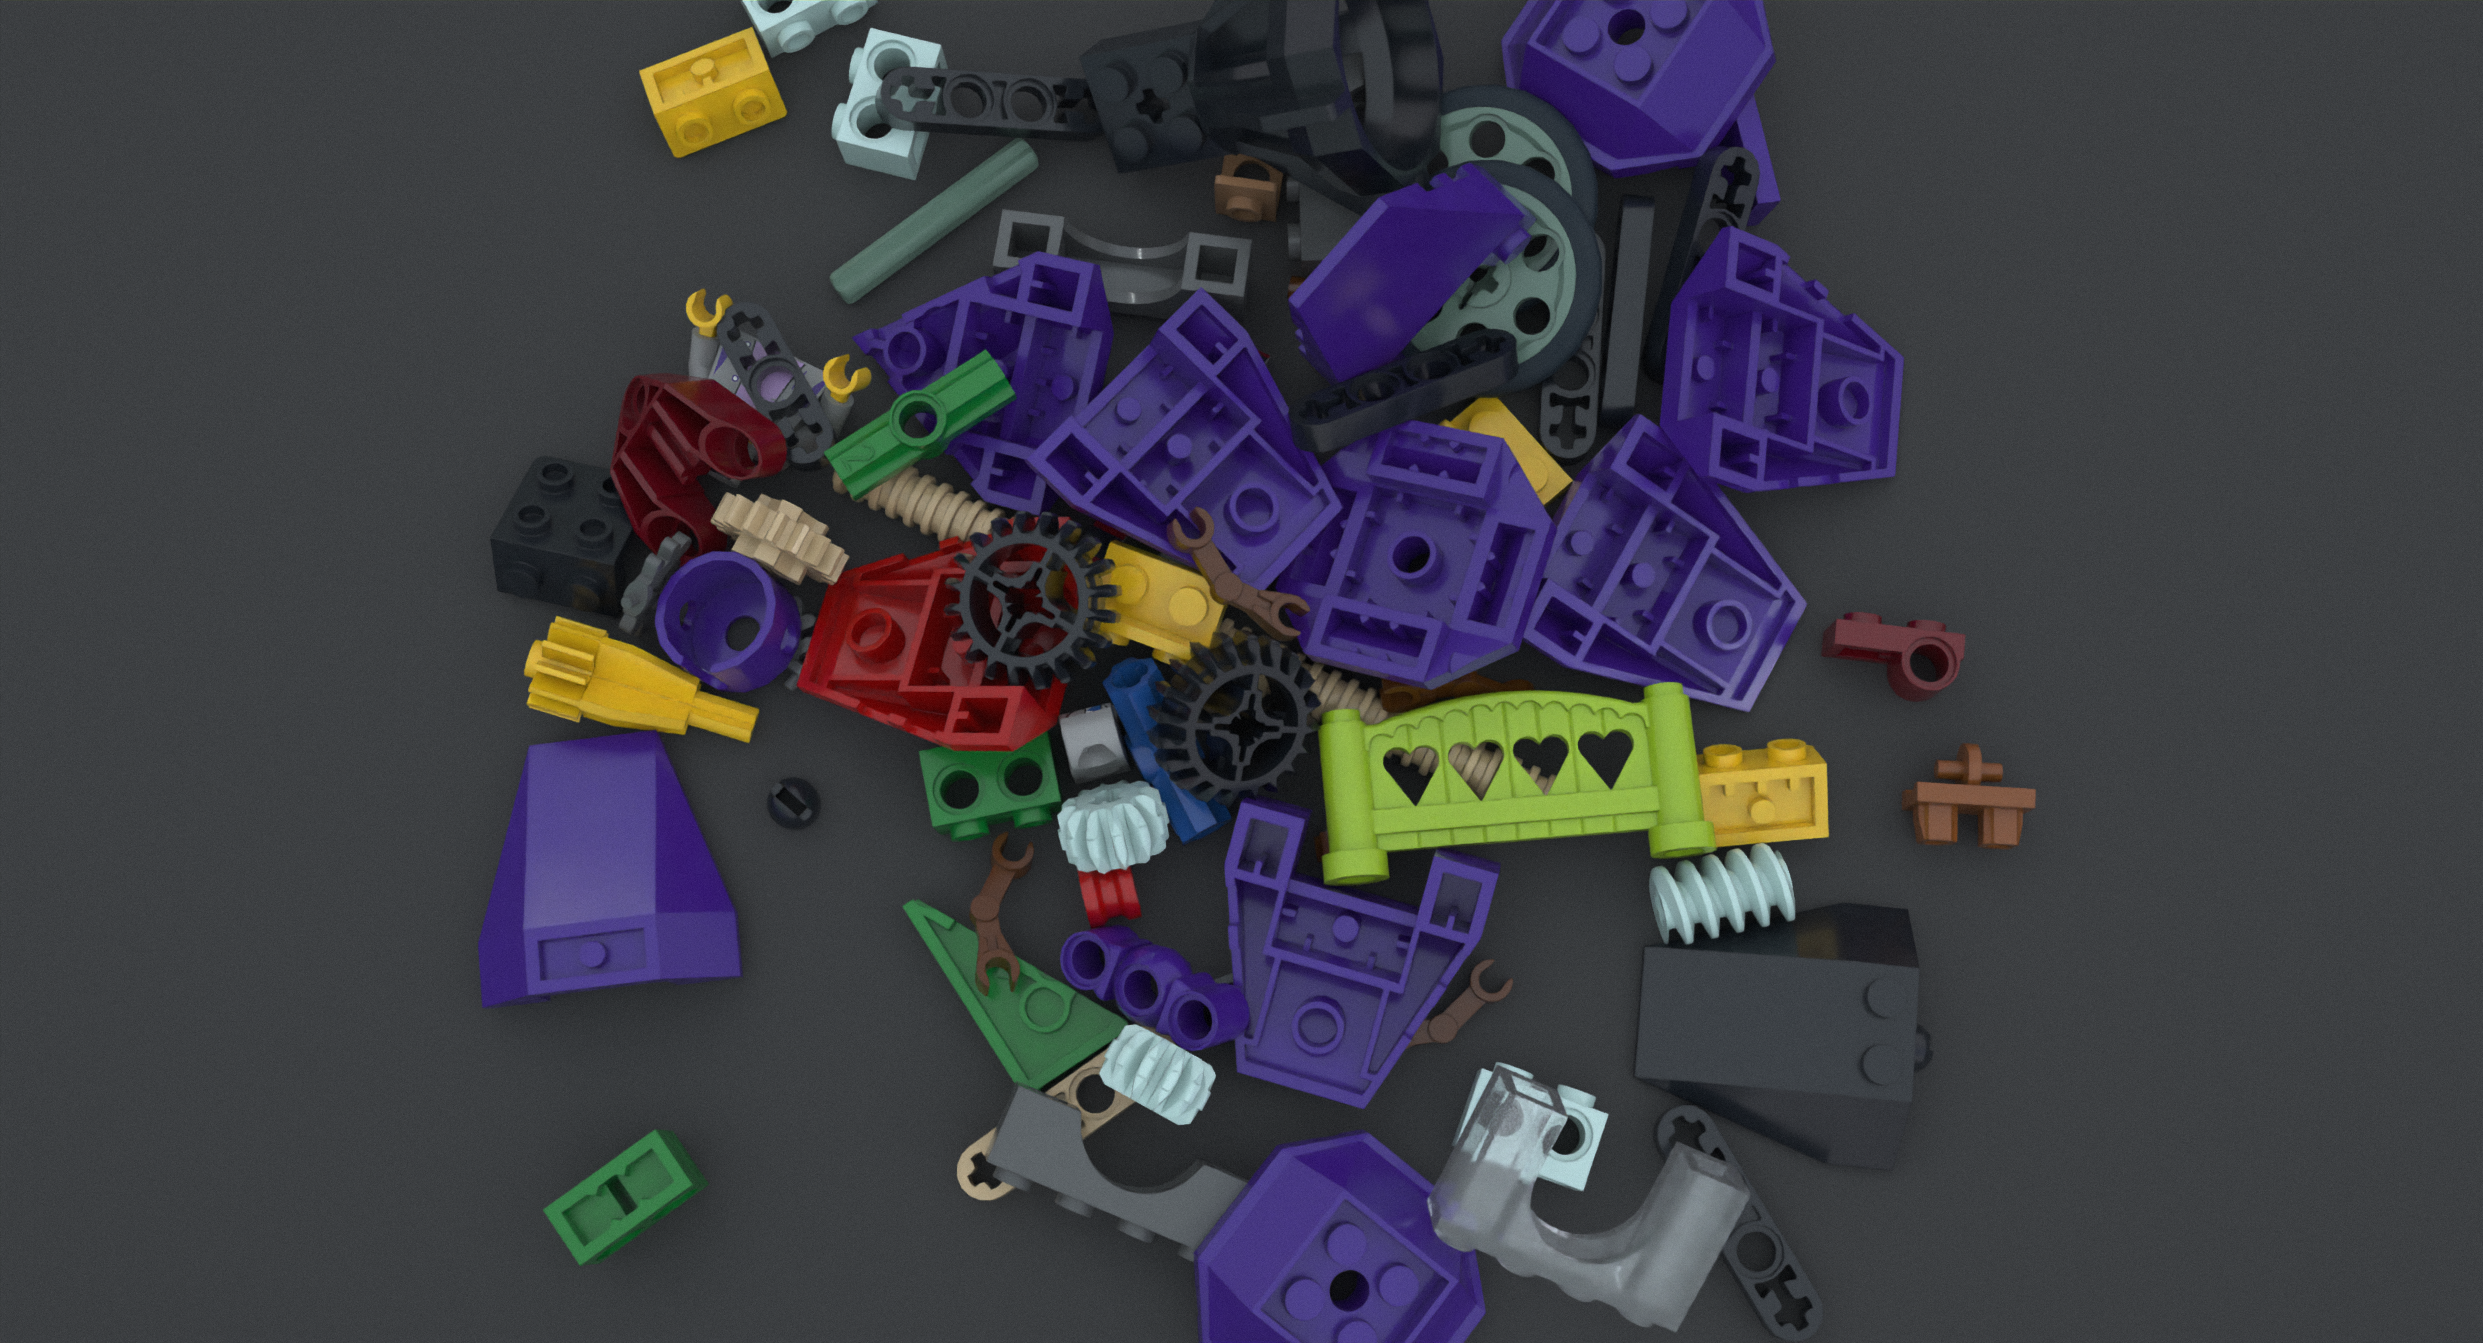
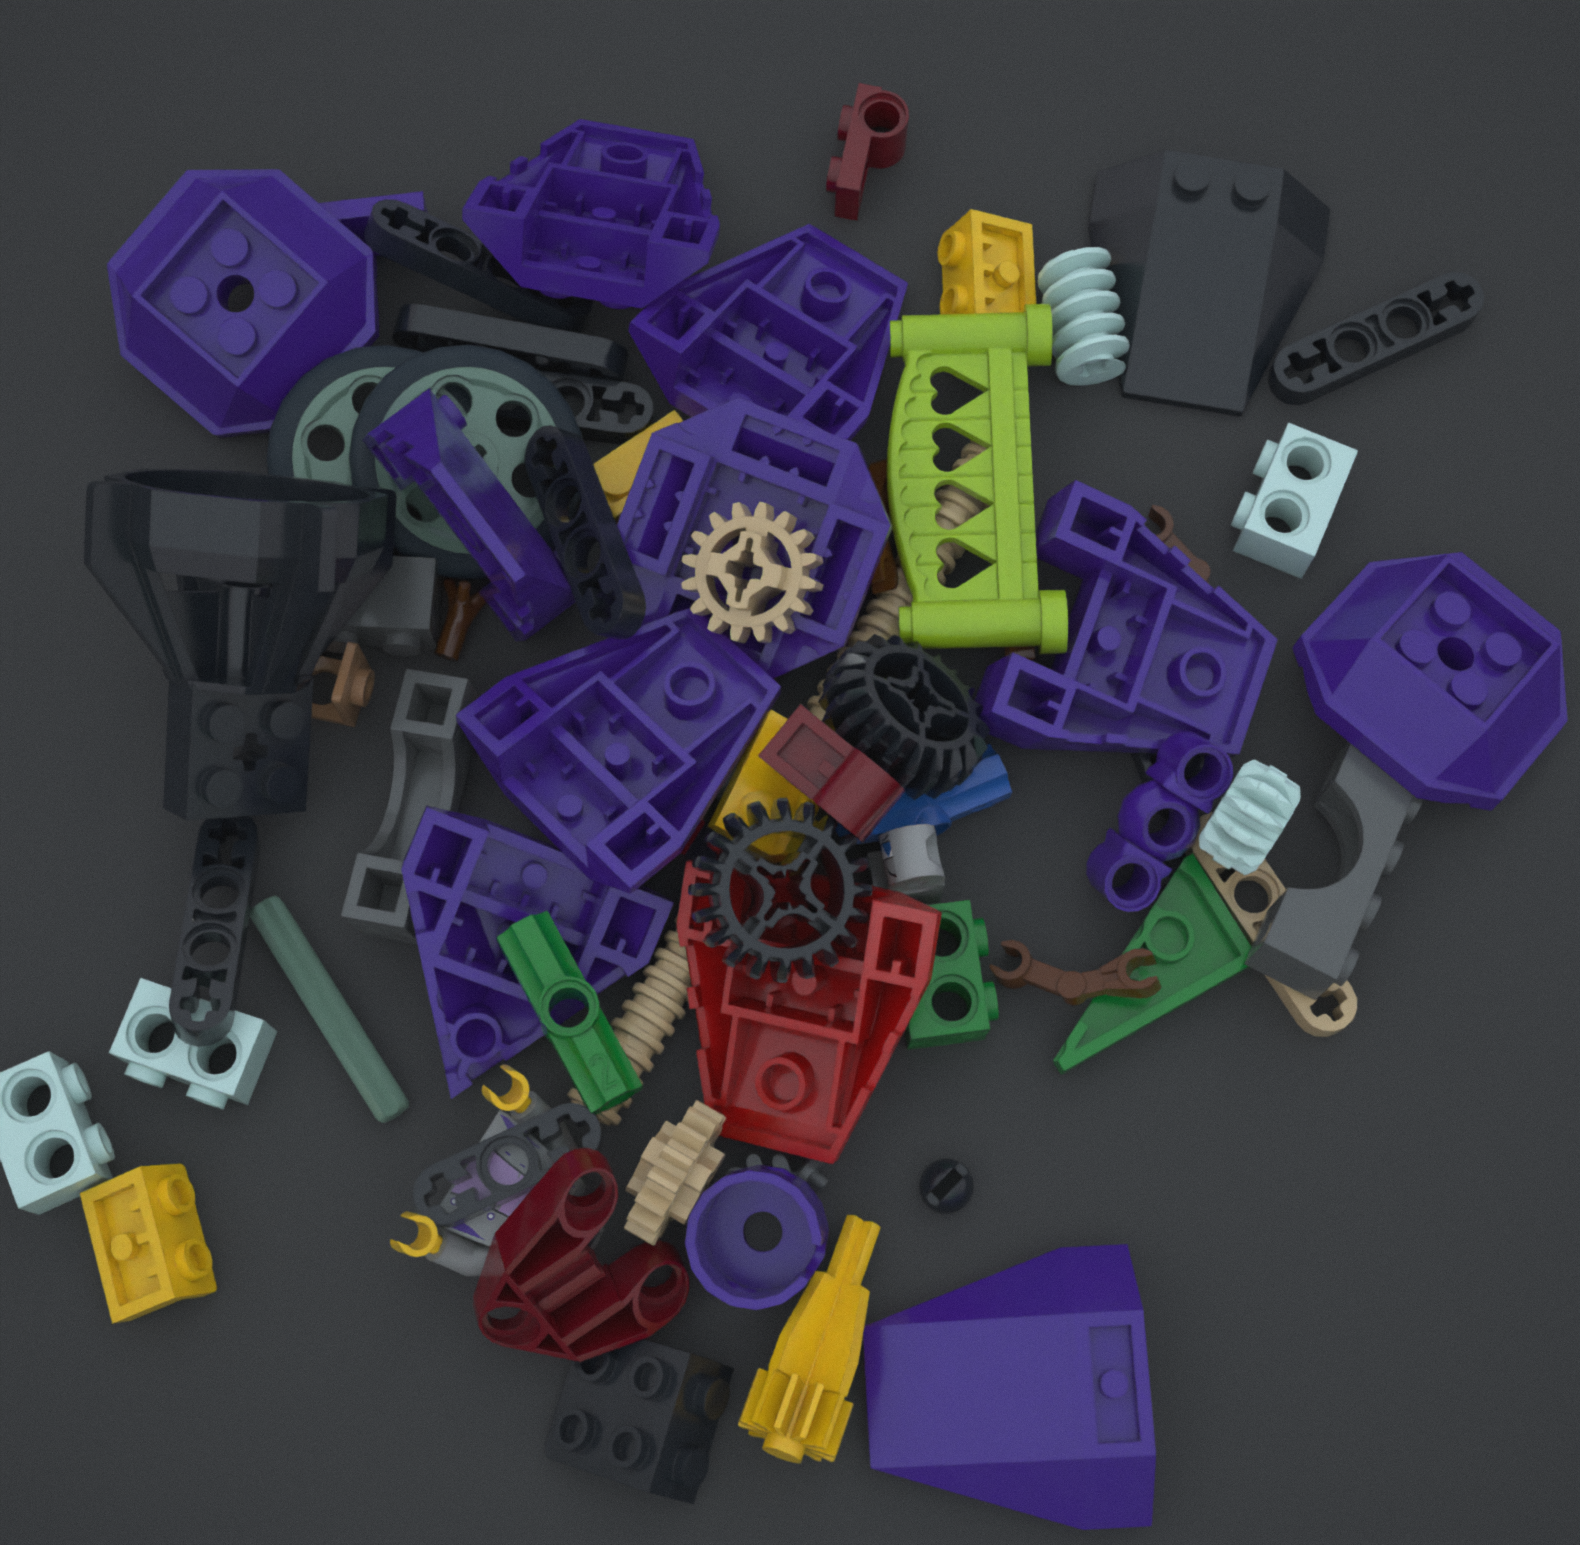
camera: 90 degrees left, 5 degrees down
(625, 1197) = (1358, 1365): green brick -> none
(639, 598) = (722, 1321): dark grey animal -> none
(1109, 895) = (1056, 866): red wheel -> none
(1113, 826) = (997, 851): light aqua gear -> none
(1143, 650) = (832, 773): none -> dark red plate
(1227, 587) = (773, 710): reddish brown piece -> none
(1373, 559) = (746, 597): none -> tan gear
(1642, 1267) = (1424, 410): clear arch -> none
(1938, 804) = (1017, 84): dark orange hips -> none

